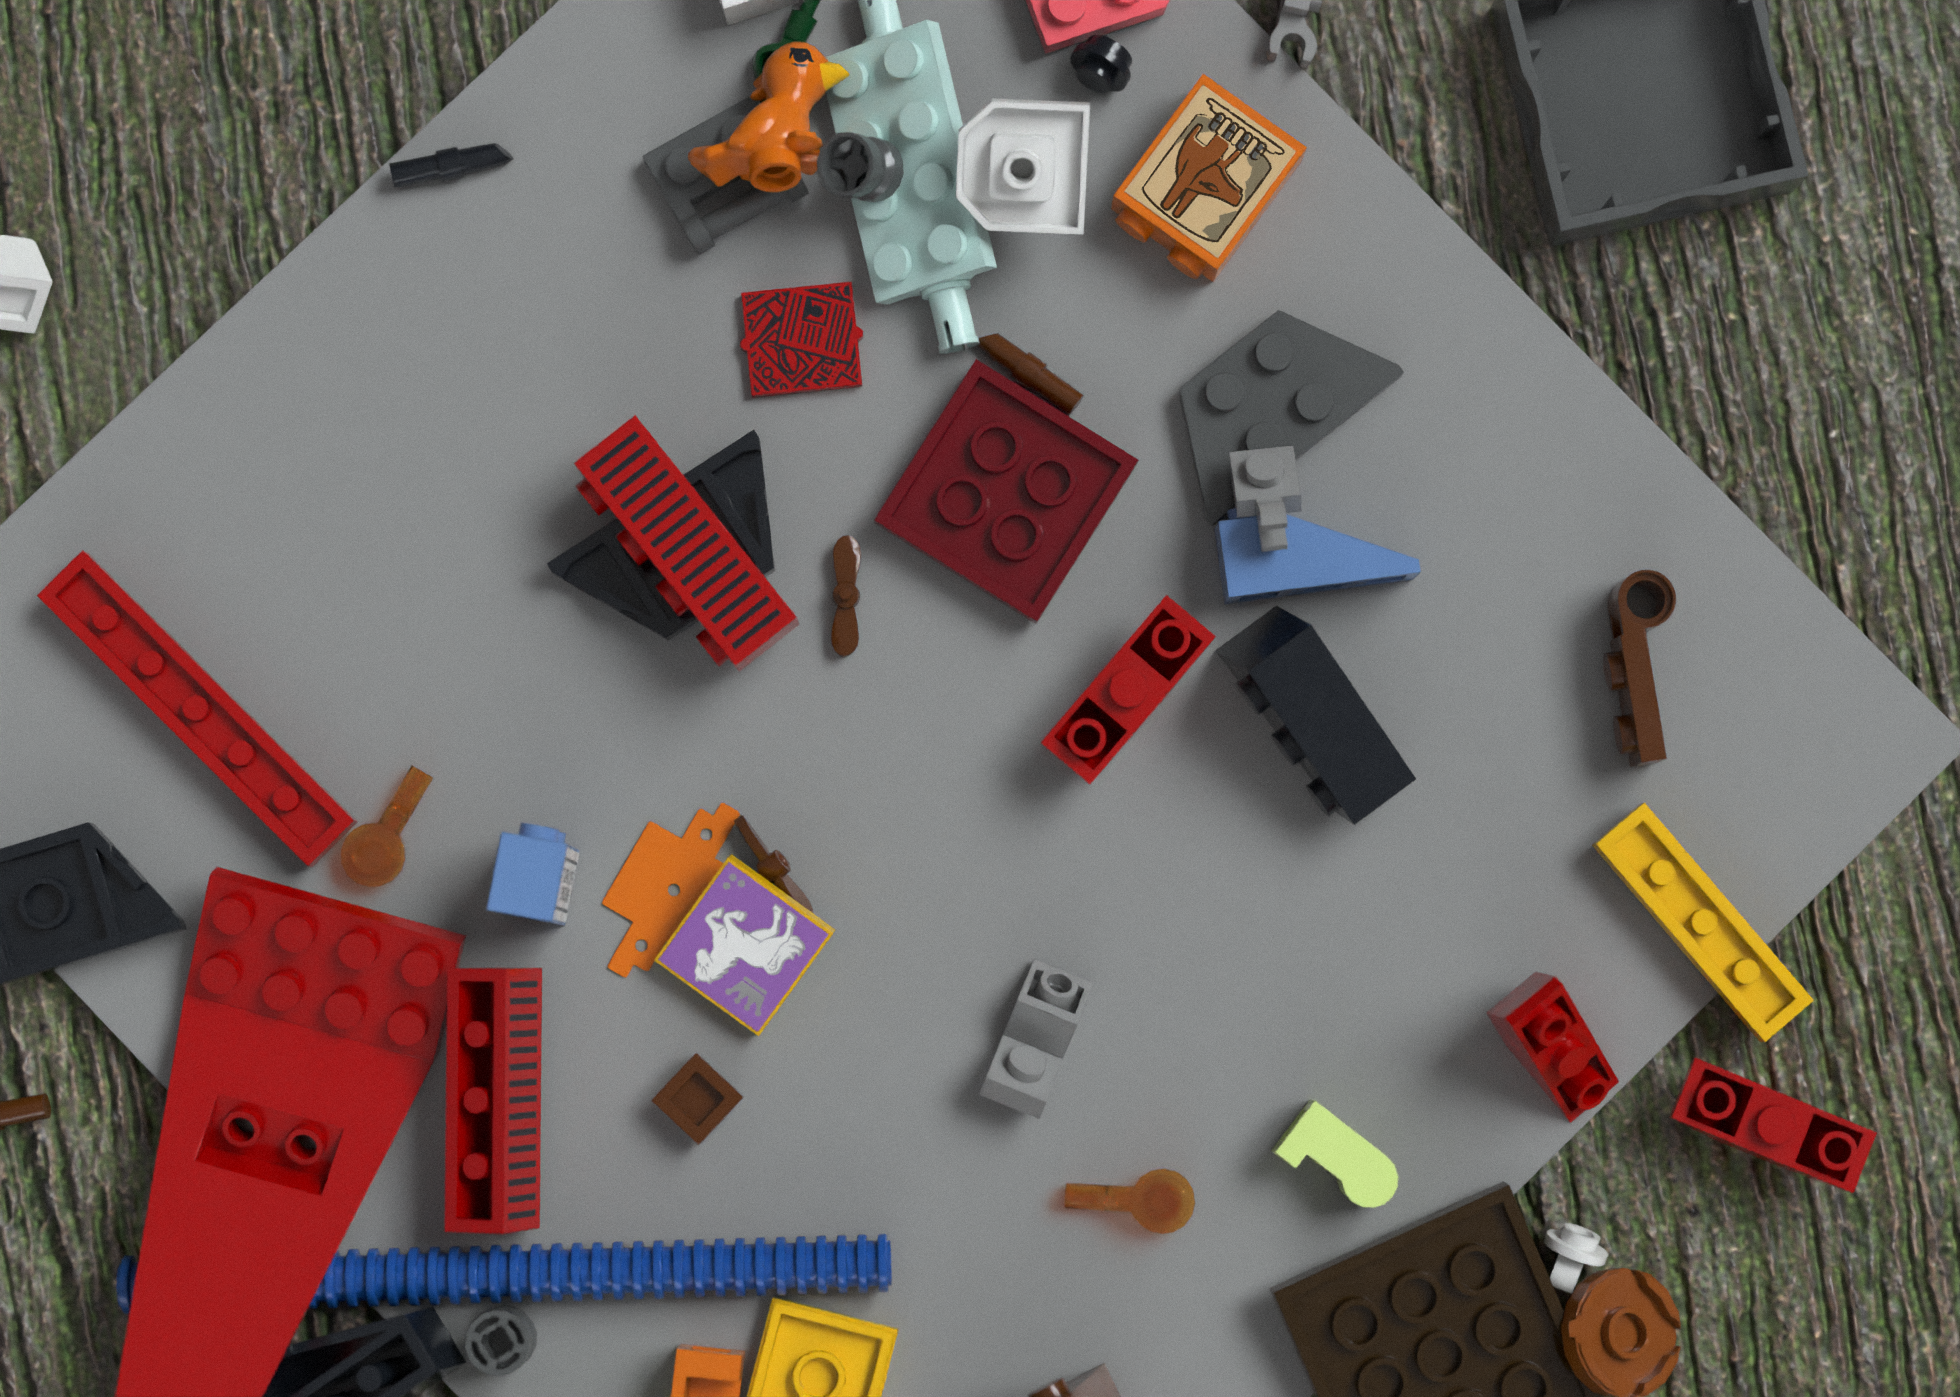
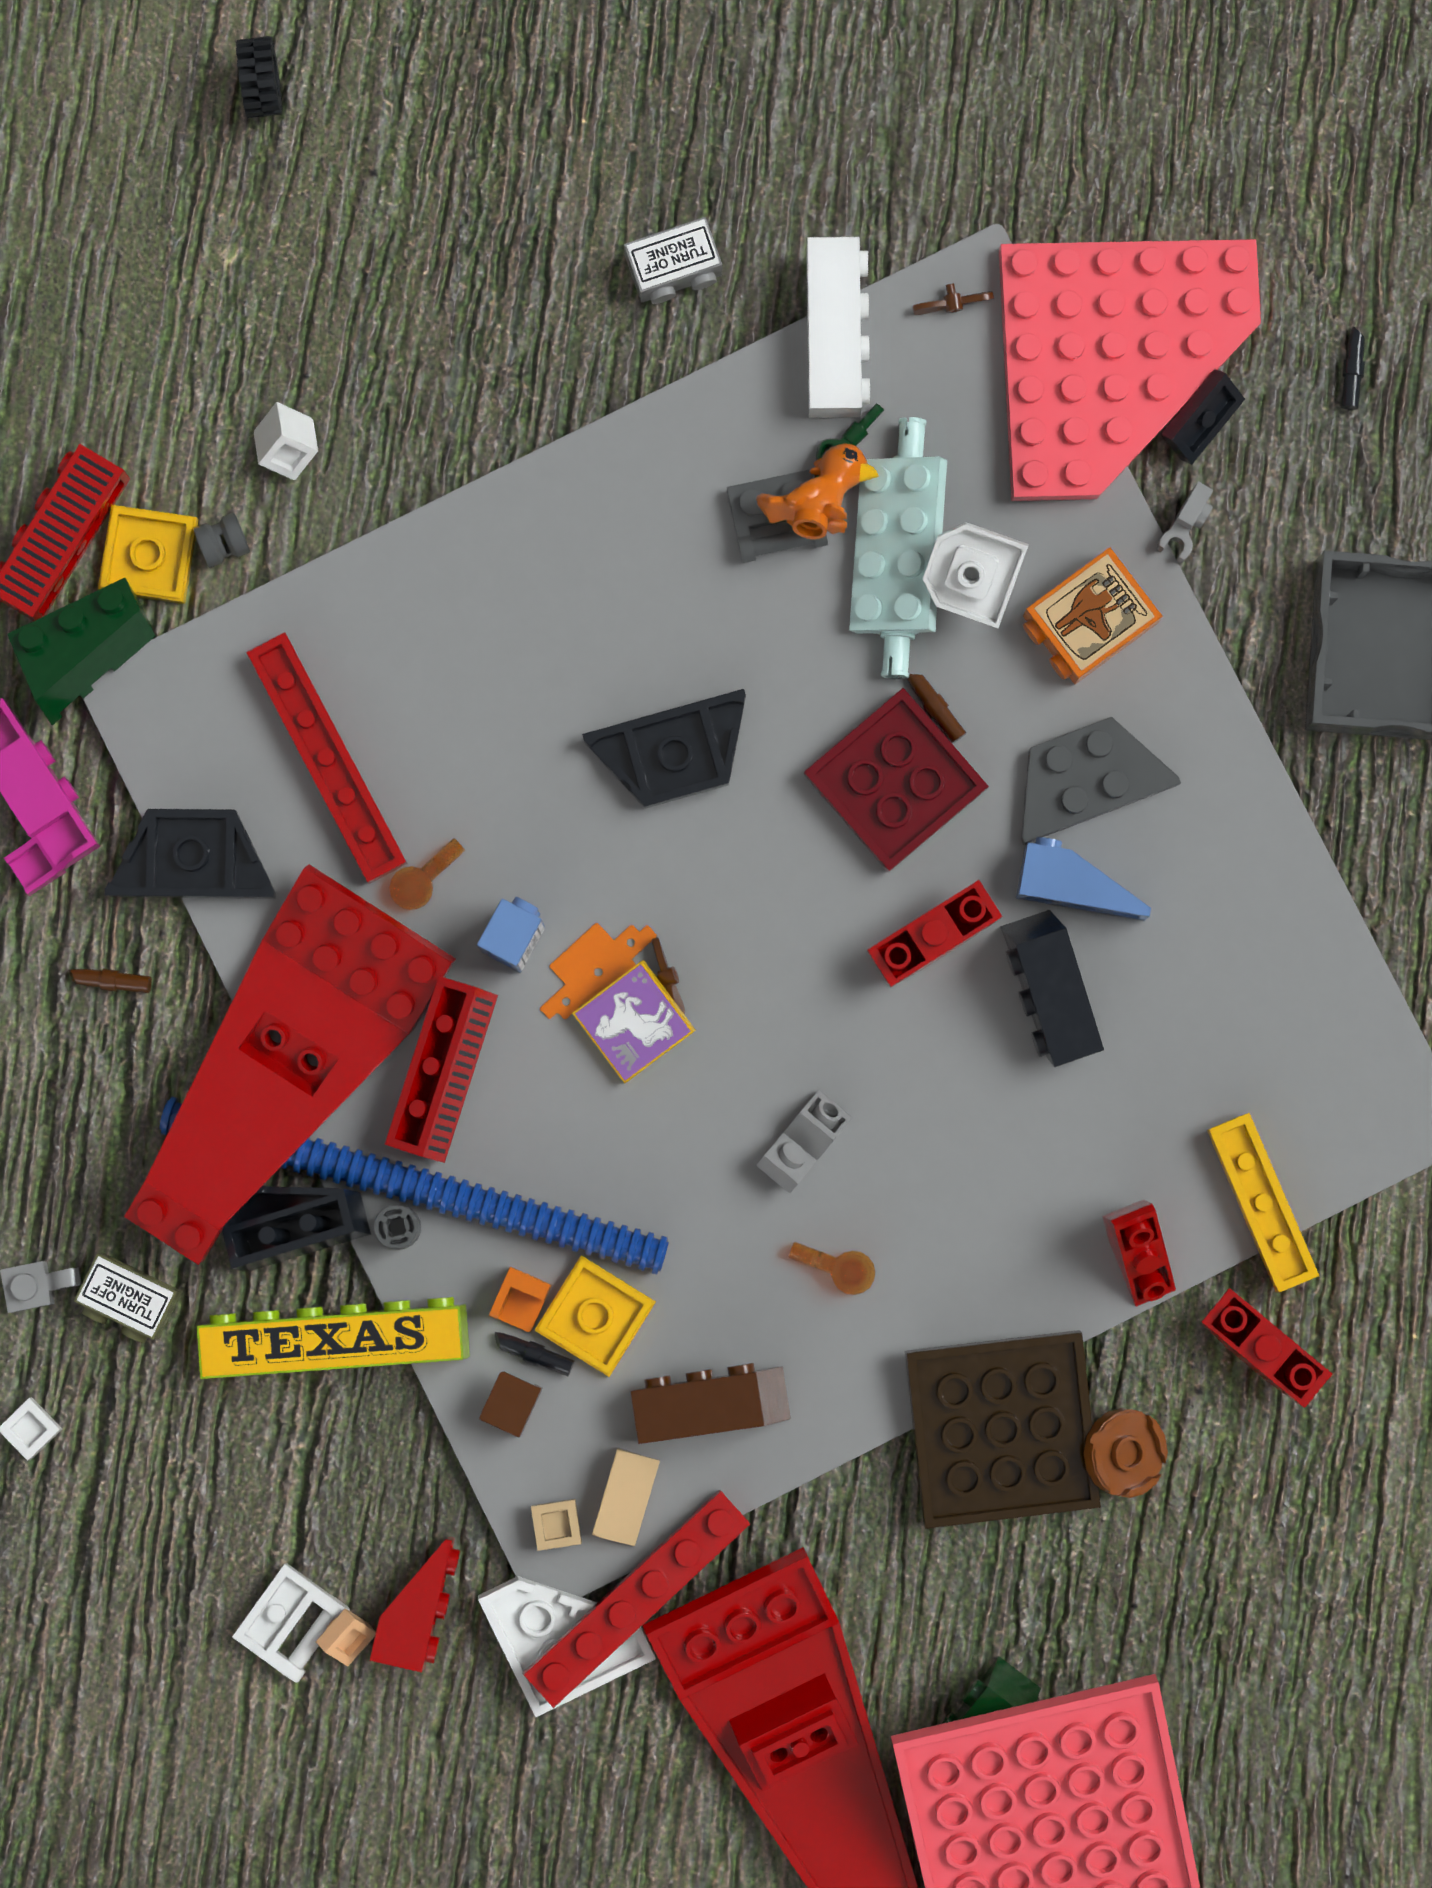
camera: 20 degrees right, 0 degrees up
(448, 164) = (598, 453): black piece -> none
(686, 544) = (677, 750): red brick -> none
(697, 1098) = (572, 1111): reddish brown plate -> none
(801, 339) = (793, 639): red piece -> none
(845, 163) = (857, 534): dark grey wheel -> none
(846, 596) = (770, 815): reddish brown piece -> none
(1102, 64) = (1046, 519): black plate -> none
(1266, 487) = (1067, 830): light grey plate -> none
(1360, 1168) = (988, 1291): yellowish green leg -> none
(1575, 1248) = (1112, 1389): white plate -> none
(1630, 668) = (1267, 1023): reddish brown plate -> none

